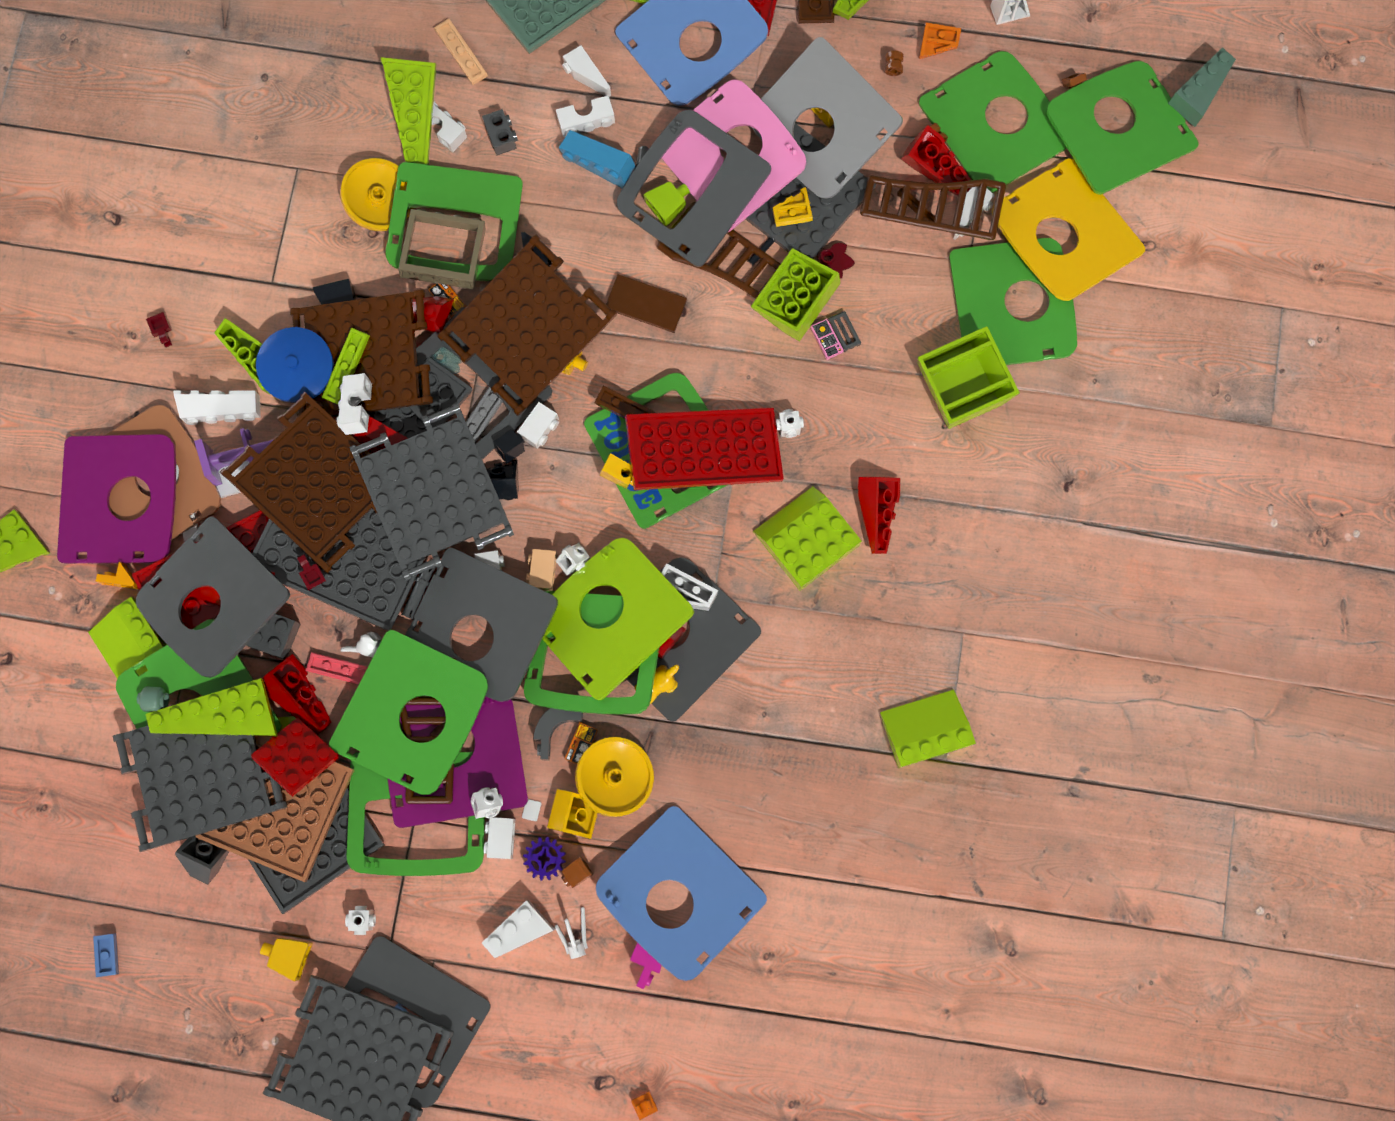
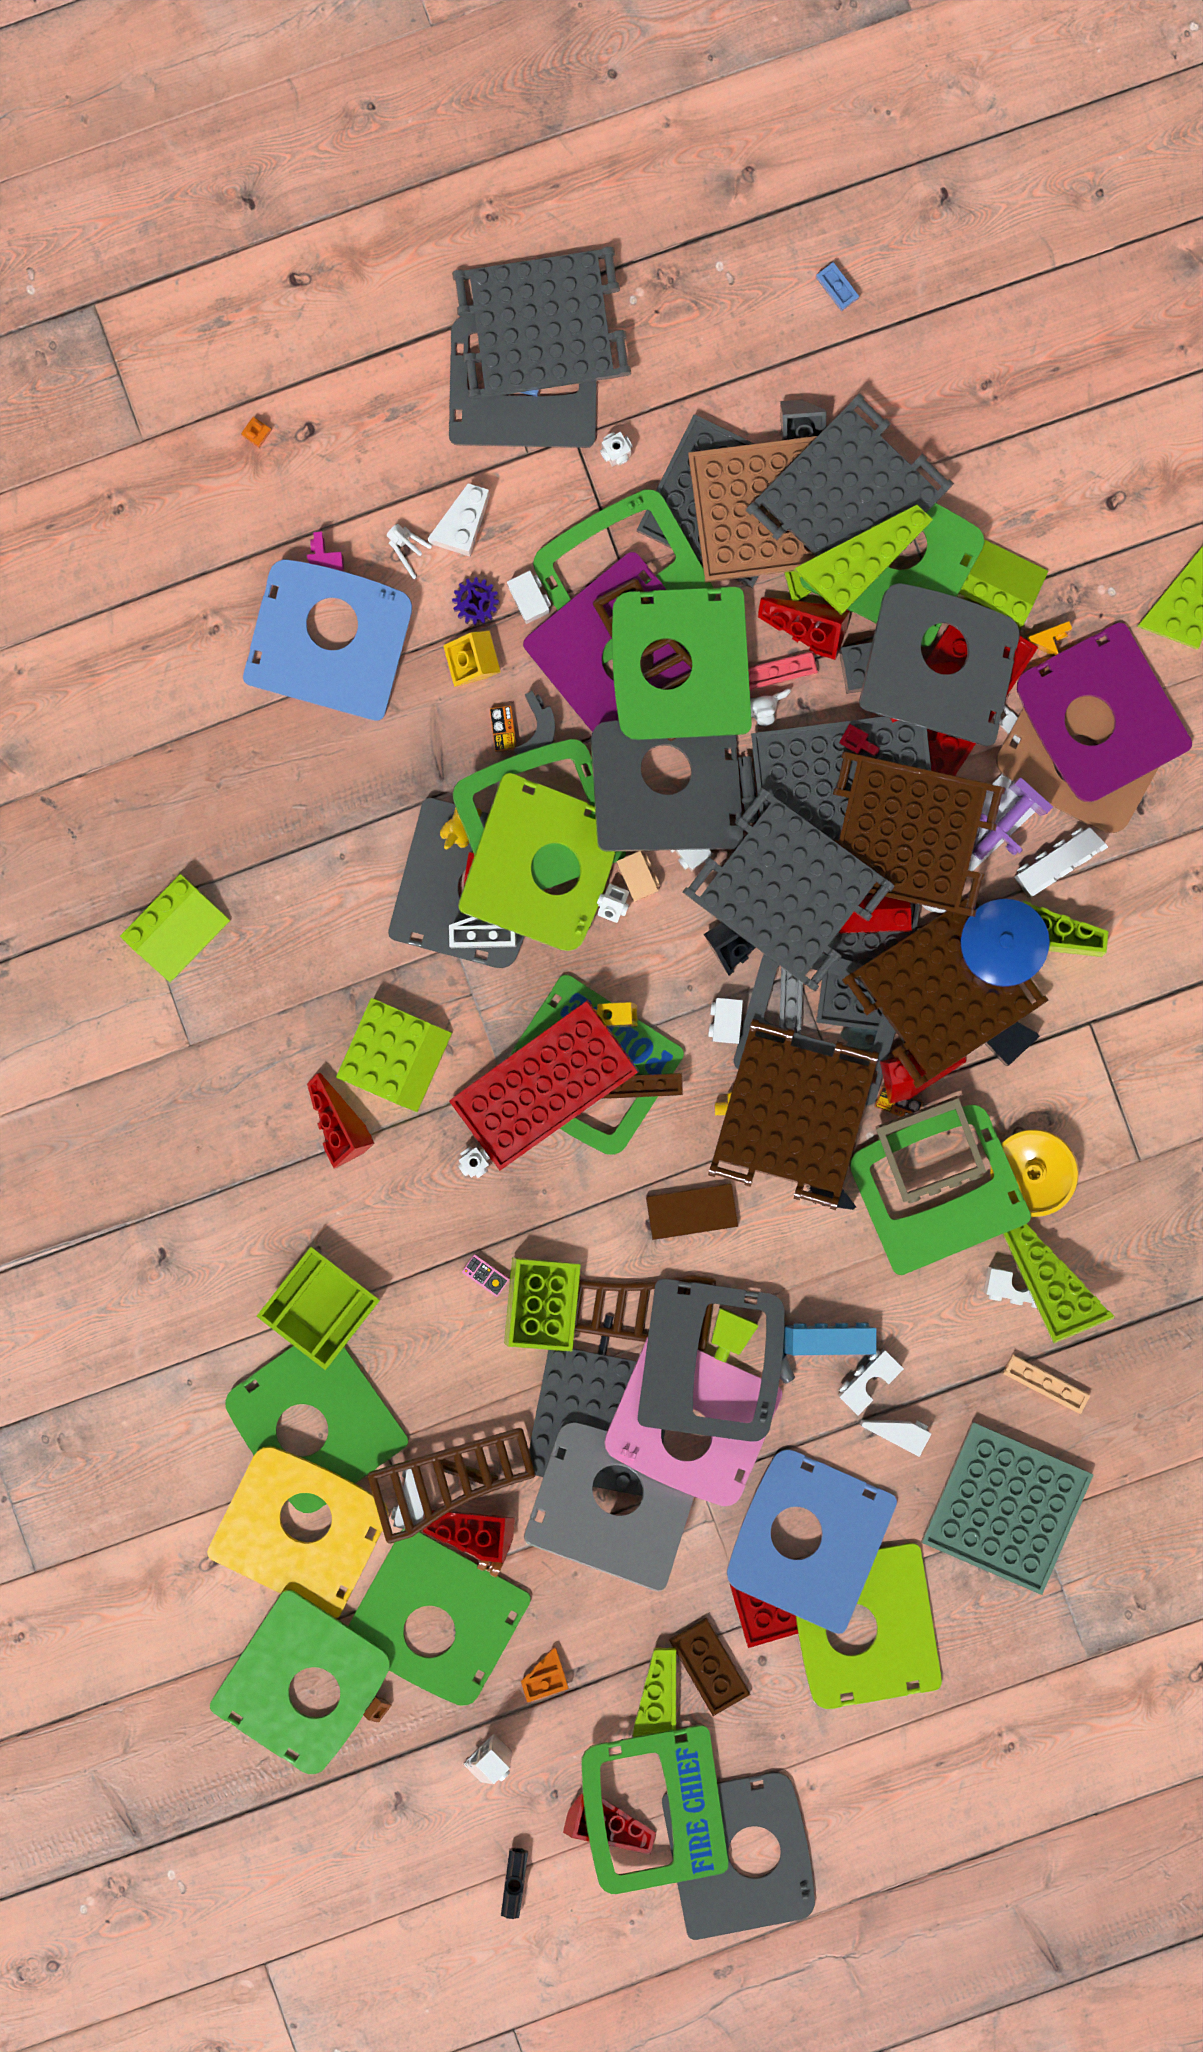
camera: 150 degrees right, 10 degrees up
(152, 699) = (935, 537): sand green head -> none
(159, 327) = (1173, 911): dark red plate -> none
(287, 956) = (666, 379): yellow torso -> none
(294, 756) = (766, 560): red plate -> none
(346, 363) = (952, 969): lime tile -> none
(354, 418) = (926, 946): white arch -> none
(486, 803) = (558, 620): white brick -> none
(499, 132) = (953, 1310): dark grey brick -> none
(509, 446) = (742, 983): black brick -> none
(531, 810) = (515, 640): white sticker -> none
(576, 873) = (436, 604): dark orange slope -> none
(614, 777) = (451, 713): yellow dish -> none
(793, 210) = (592, 1393): yellow wing -> none
(839, 260) = (518, 1367): dark red plate -> none
(850, 345) = (487, 1304): dark grey tile -> none
(894, 63) = (578, 1623): dark orange wheel -> none
(1198, 92) = (237, 1767): sand green wedge -> none

